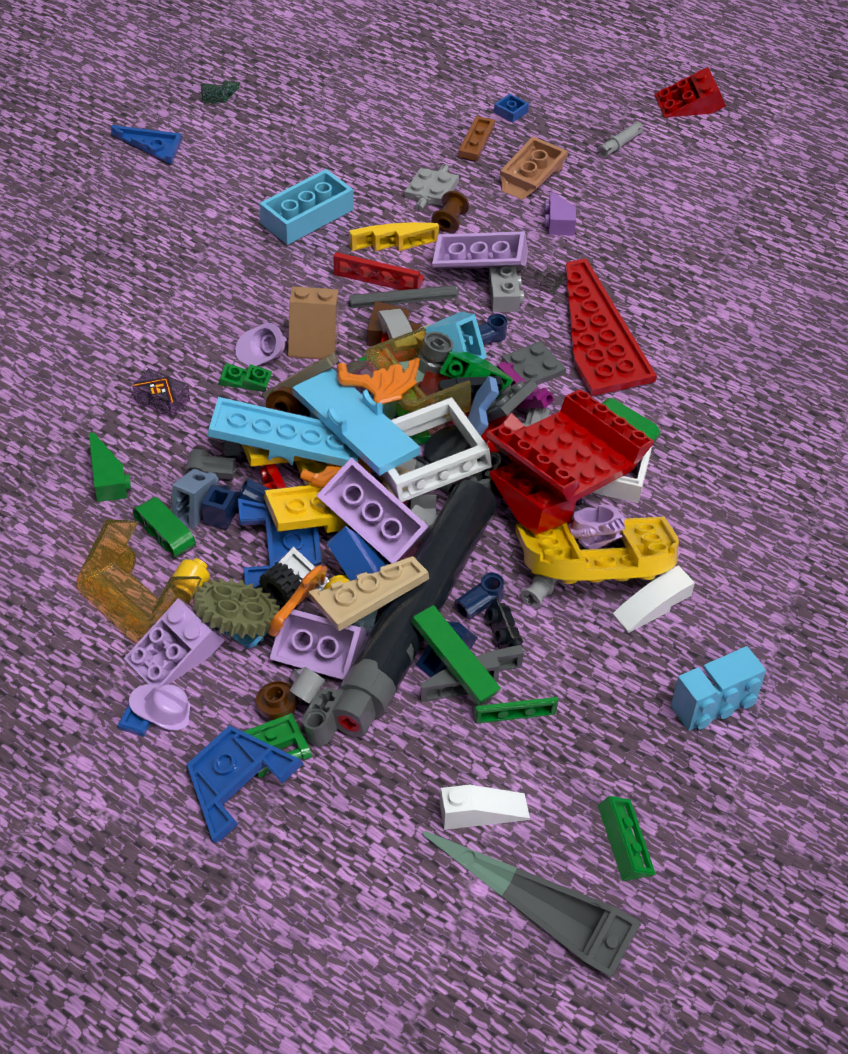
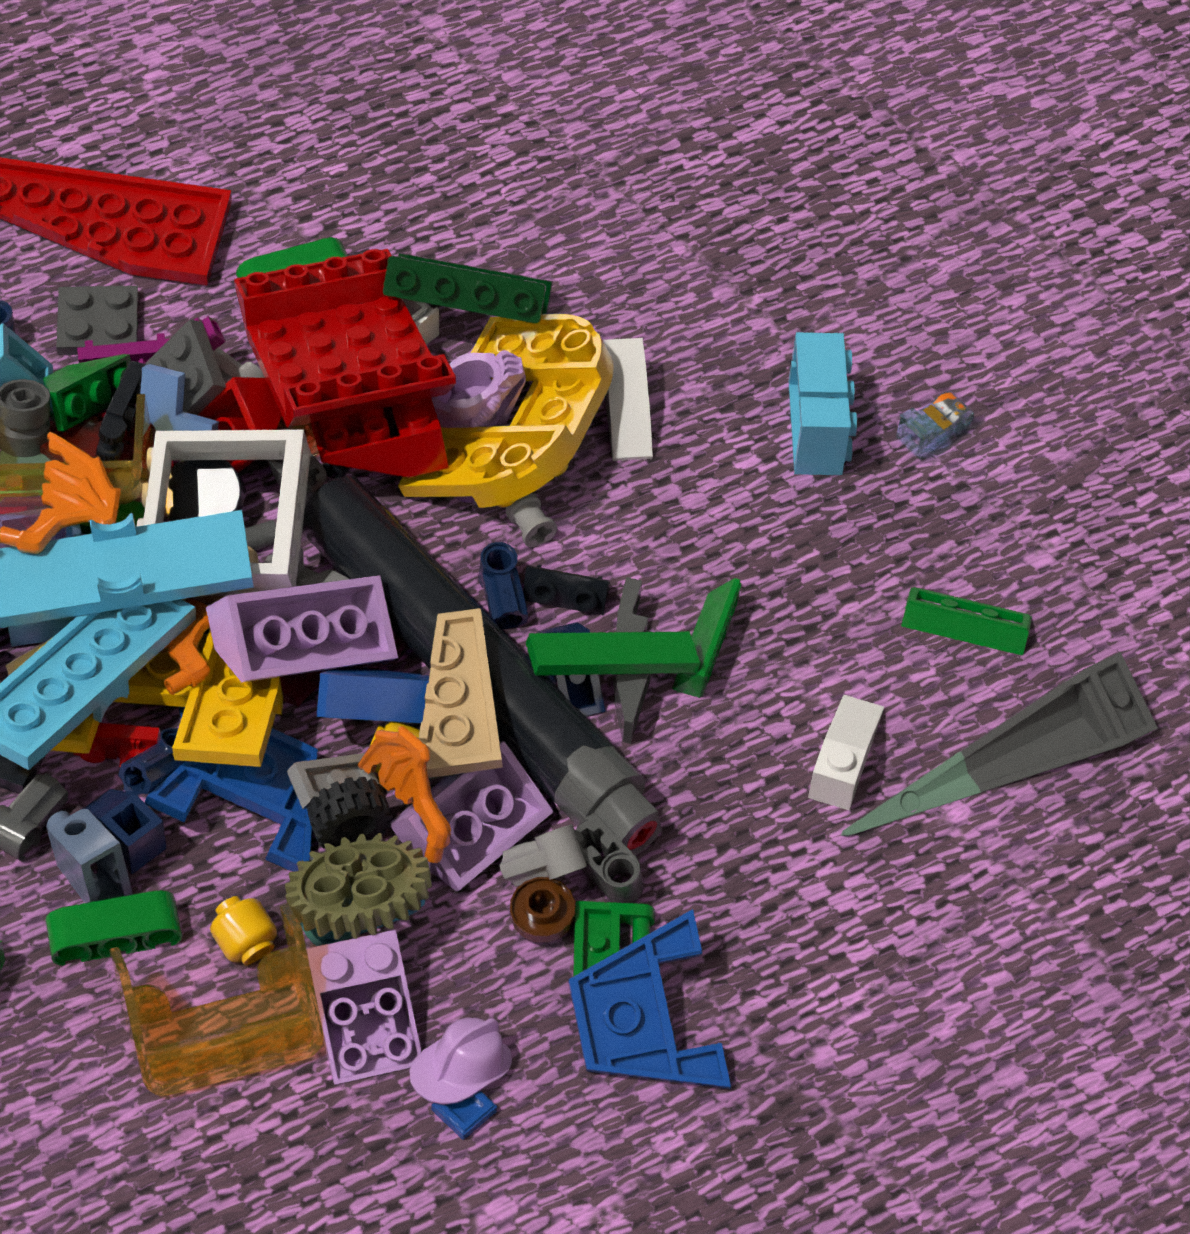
camera: 65 degrees left, 5 degrees up
(664, 491) = (467, 287): none -> dark green fence
(761, 761) = (934, 424): none -> clear light blue leg

